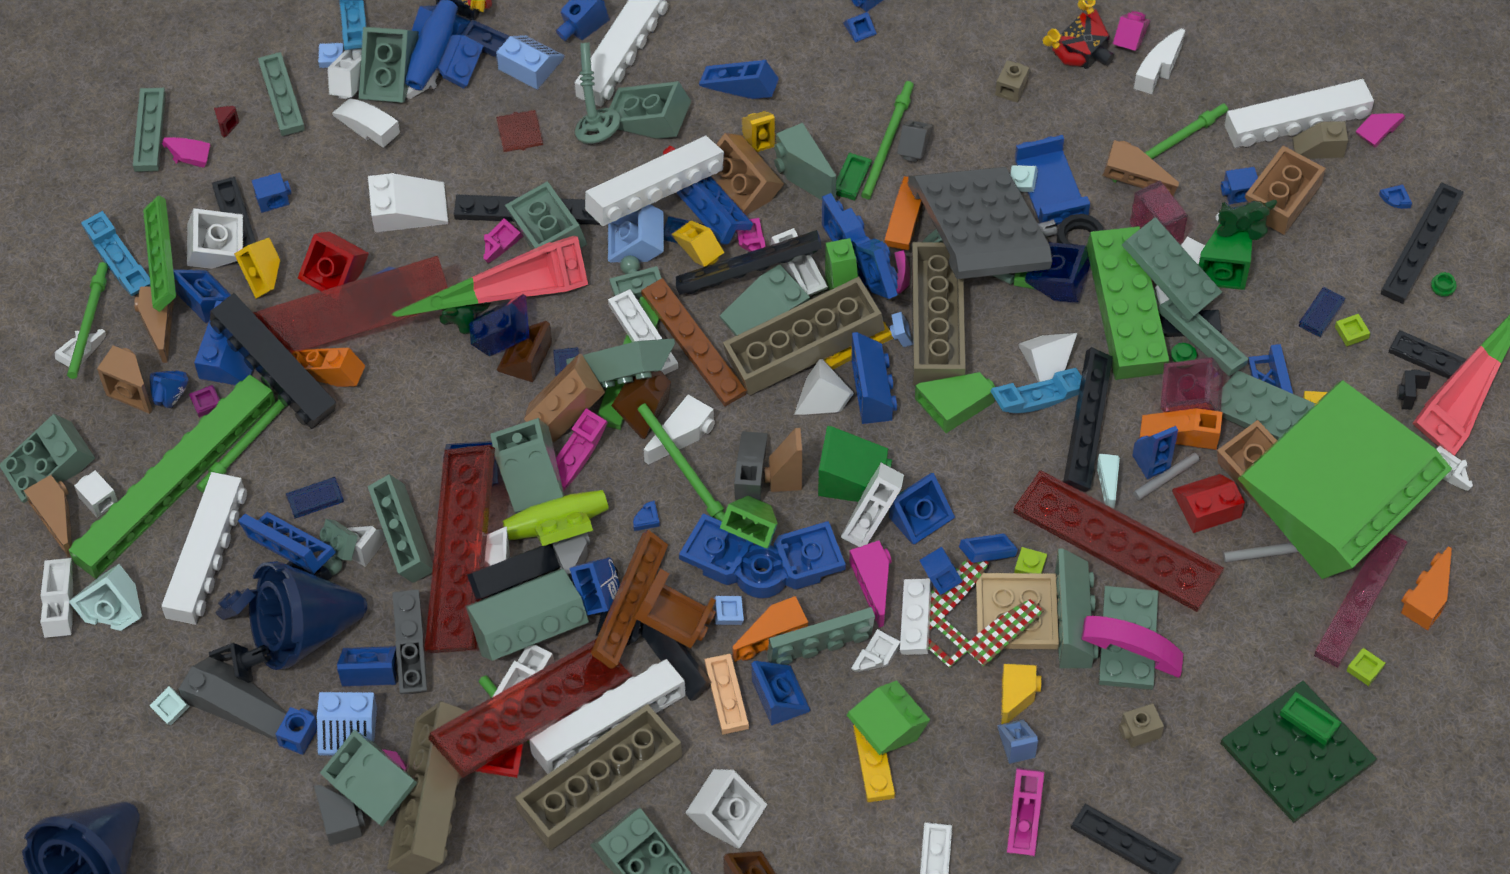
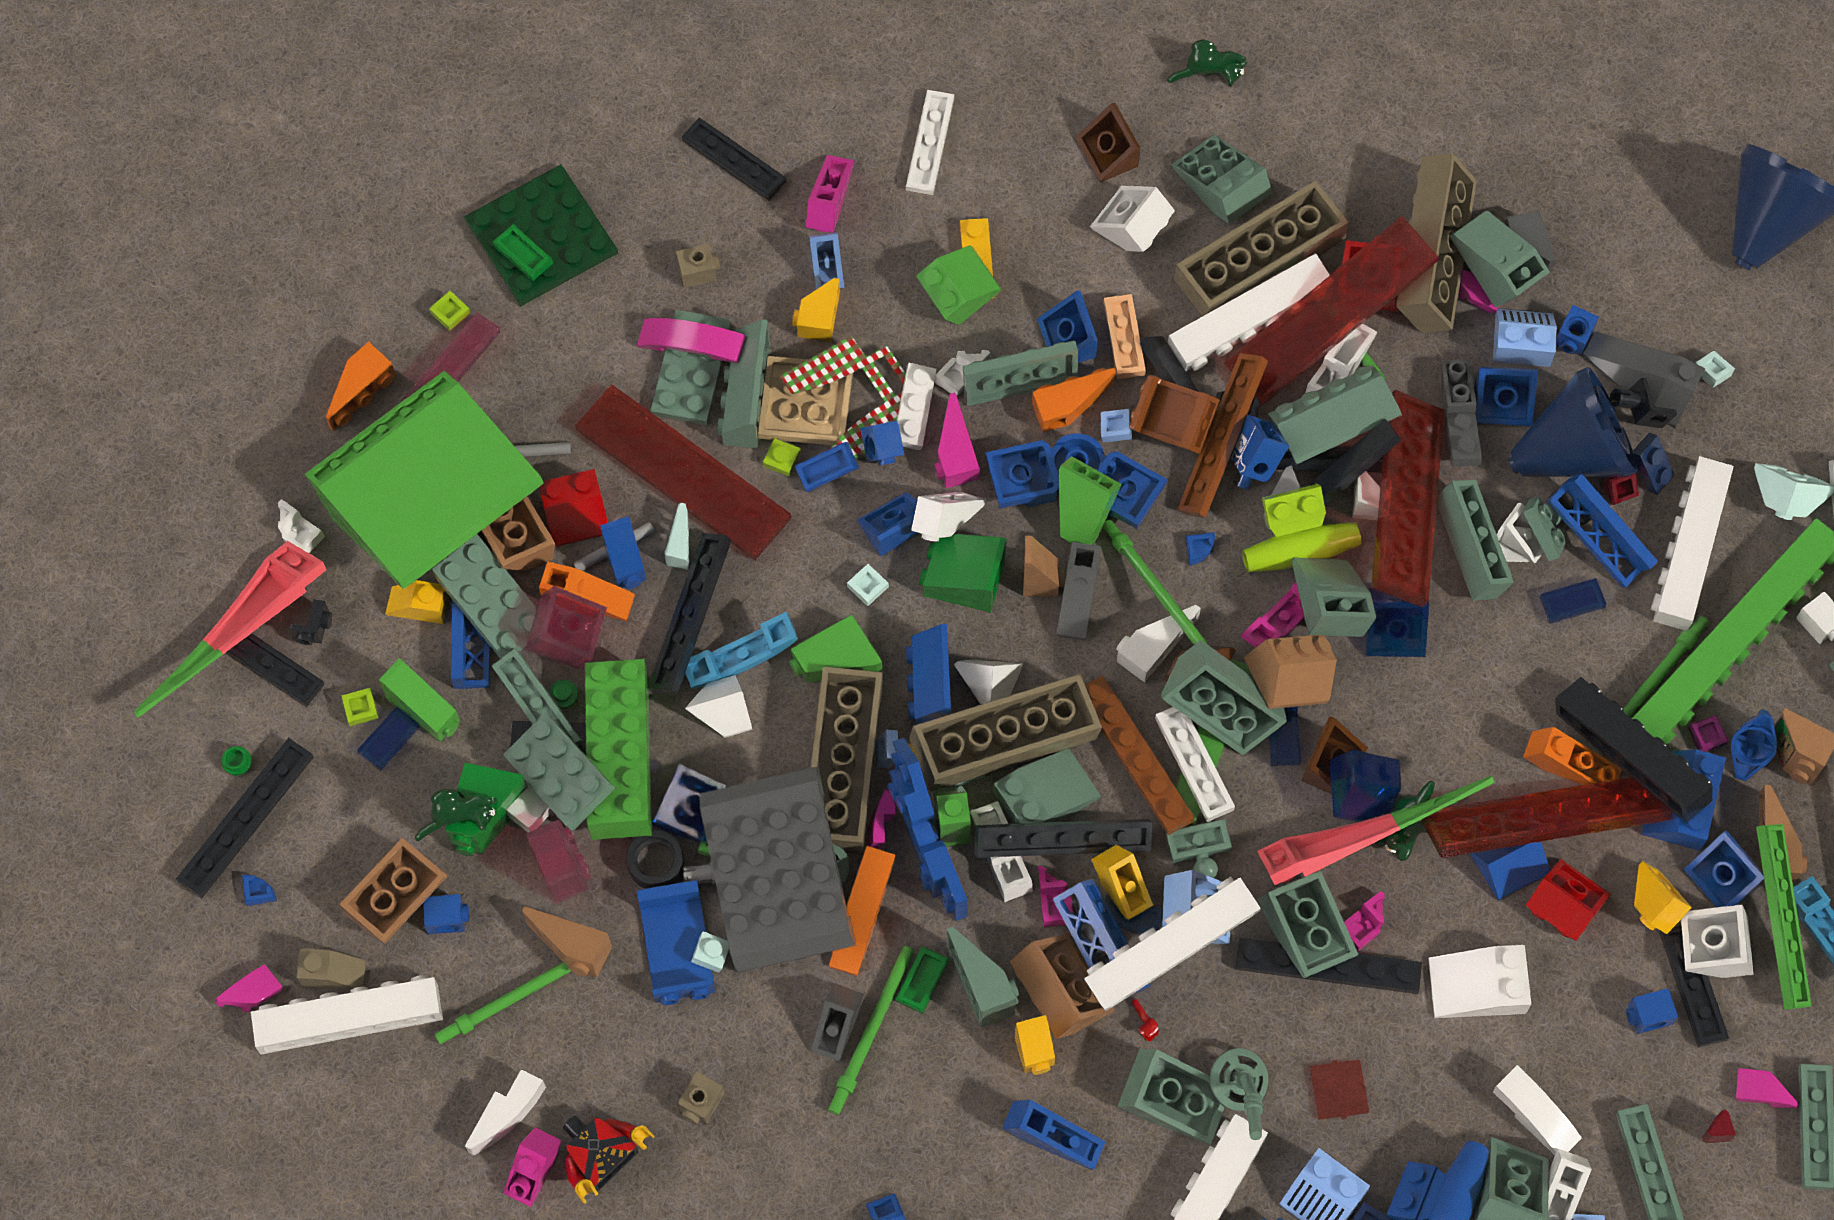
camera: 175 degrees left, 10 degrees up
(937, 458) = (867, 585): none -> light aqua plate
(1303, 329) = (419, 700): none -> bright green slope

